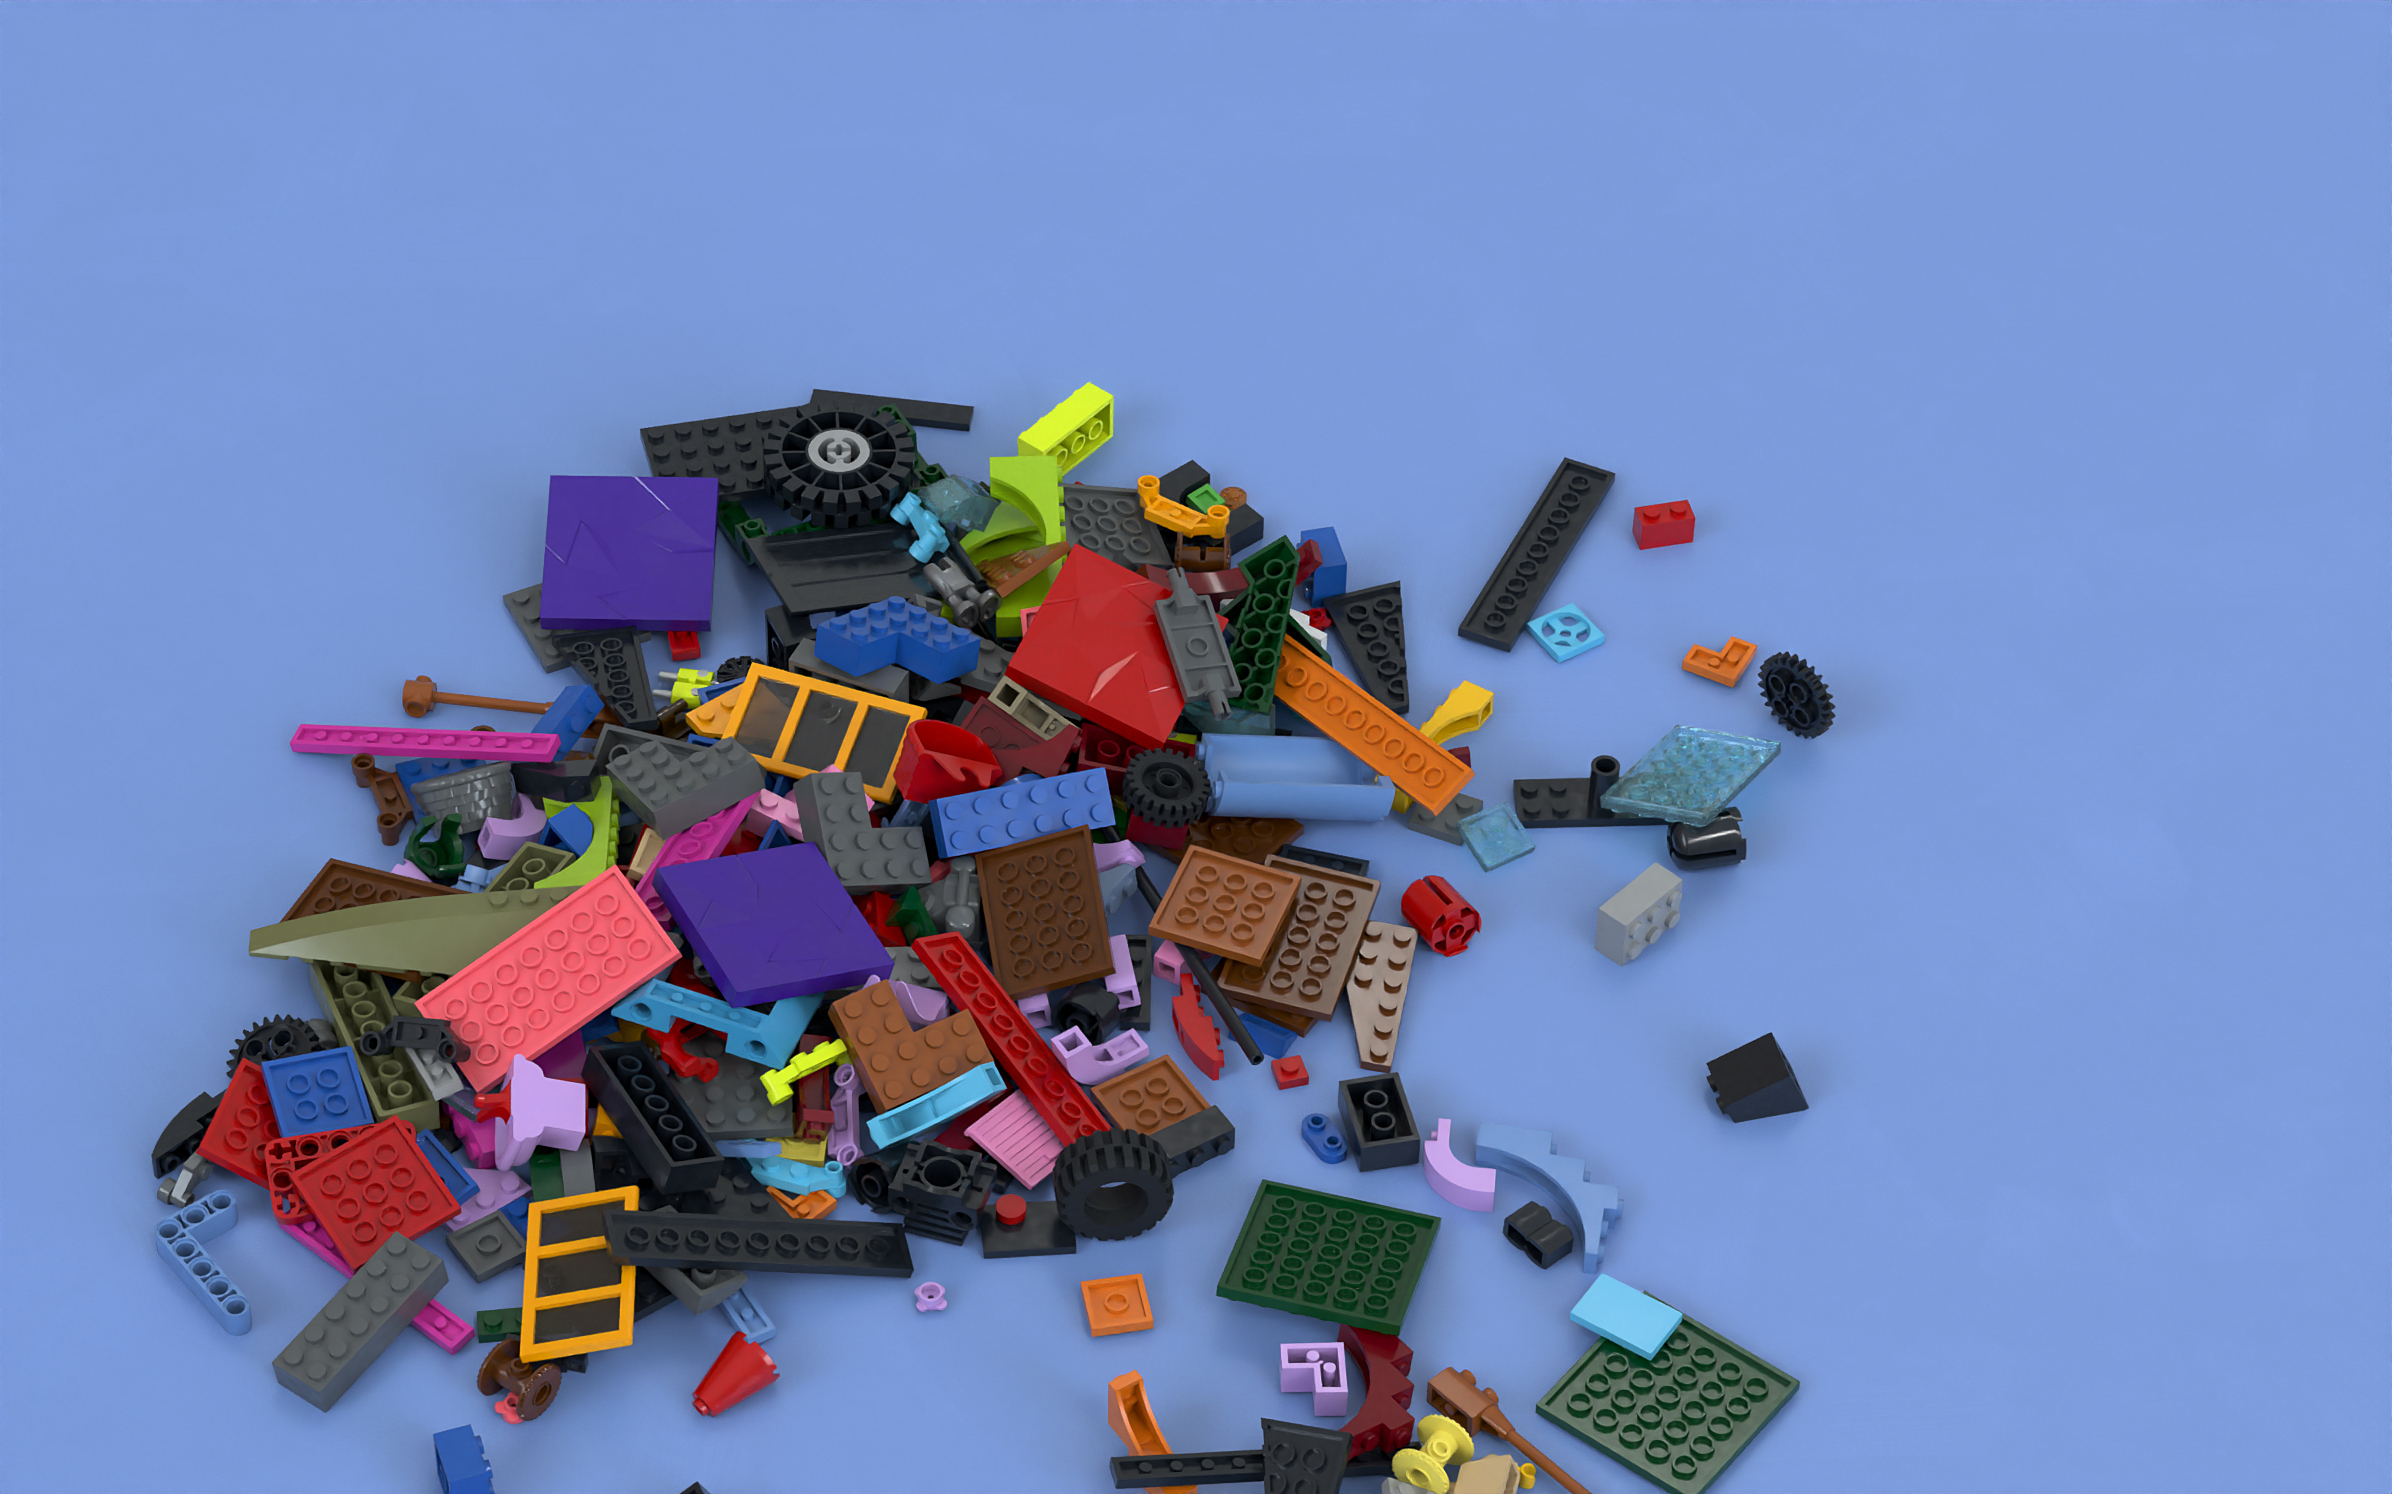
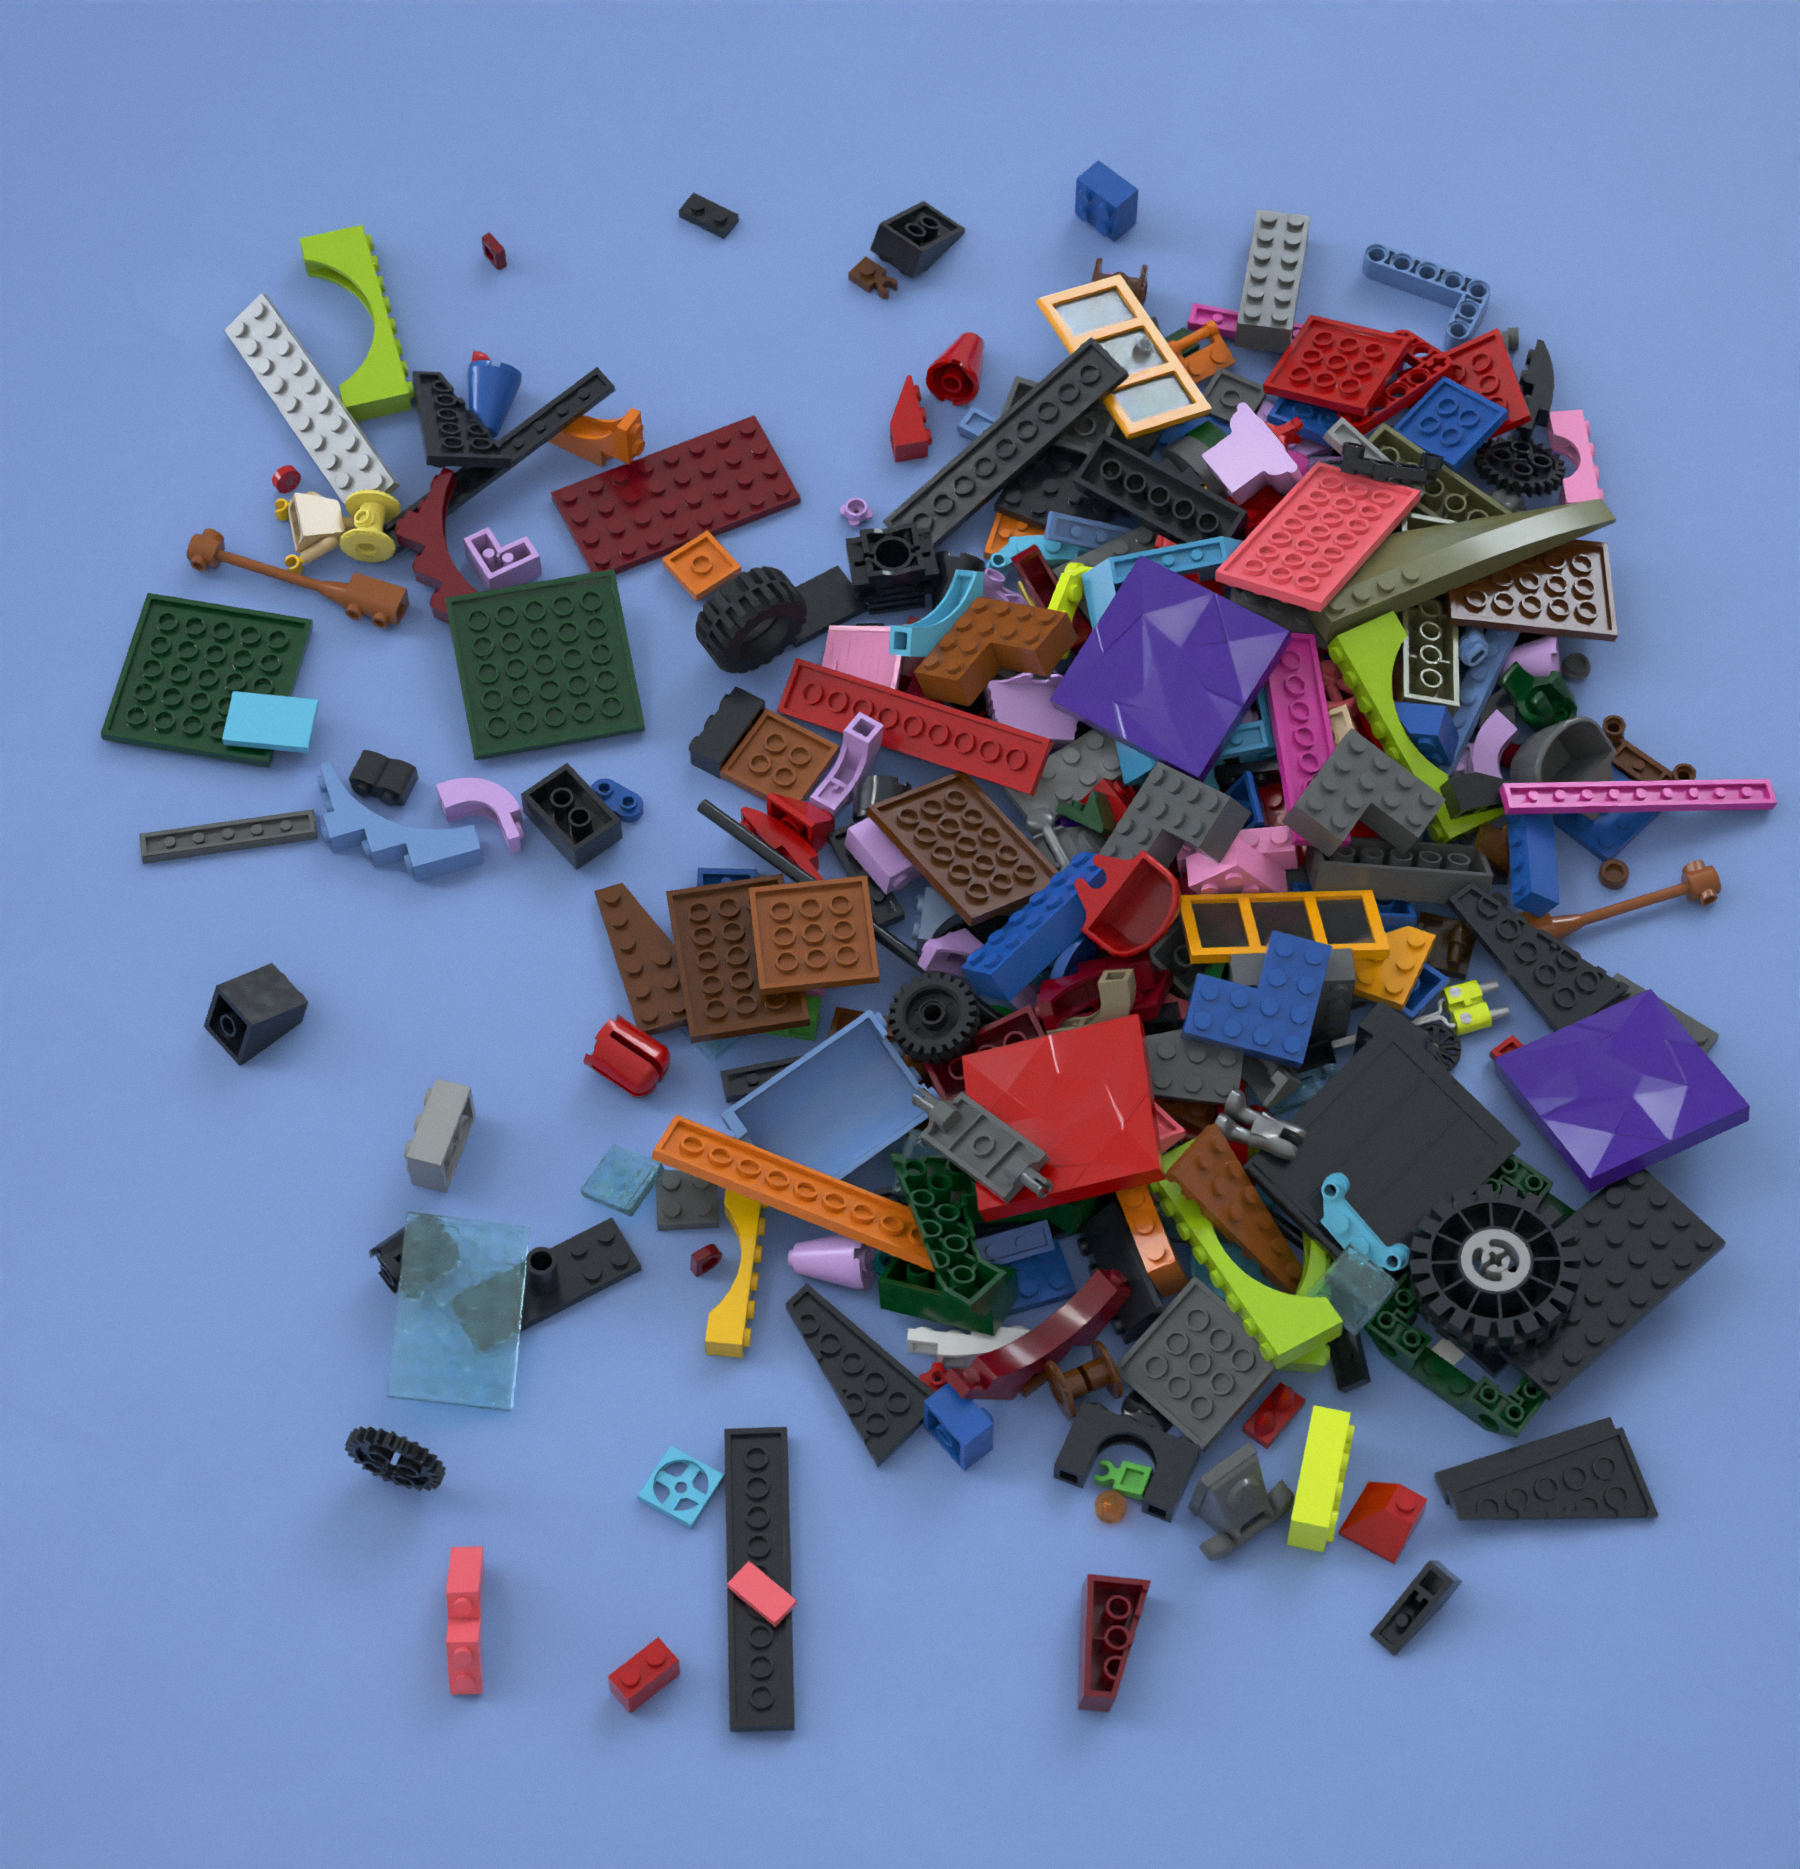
camera: 155 degrees right, 15 degrees up
(199, 1071) = (1569, 436): none -> bright pink arch
(485, 1293) = (1206, 361): none -> orange plate
(826, 1351) = (907, 429): none -> red slope
(885, 378) = (1575, 1482): none -> black wing
(1010, 1209) = (836, 604): red tile -> none
(1019, 408) = (1384, 1519): none -> red slope
(1041, 356) = (1416, 1606): none -> black slope
(1059, 1385) = (675, 496): none -> dark red plate
(1141, 445) = (1232, 1498): none -> dark grey piece
(1169, 1031) = (802, 817): none -> red slope
(1179, 517) = (1137, 1407): light orange plate -> none
(1289, 1072) = (681, 852): red plate -> none
(1294, 417) = (1107, 1631): none -> dark red wedge
(1543, 531) = (762, 1594): none -> coral tile
(1712, 1254) = (228, 836): none -> dark grey tile
(1723, 666) = (500, 1509): orange plate -> none
(1784, 600) = (464, 1626): none -> coral arch

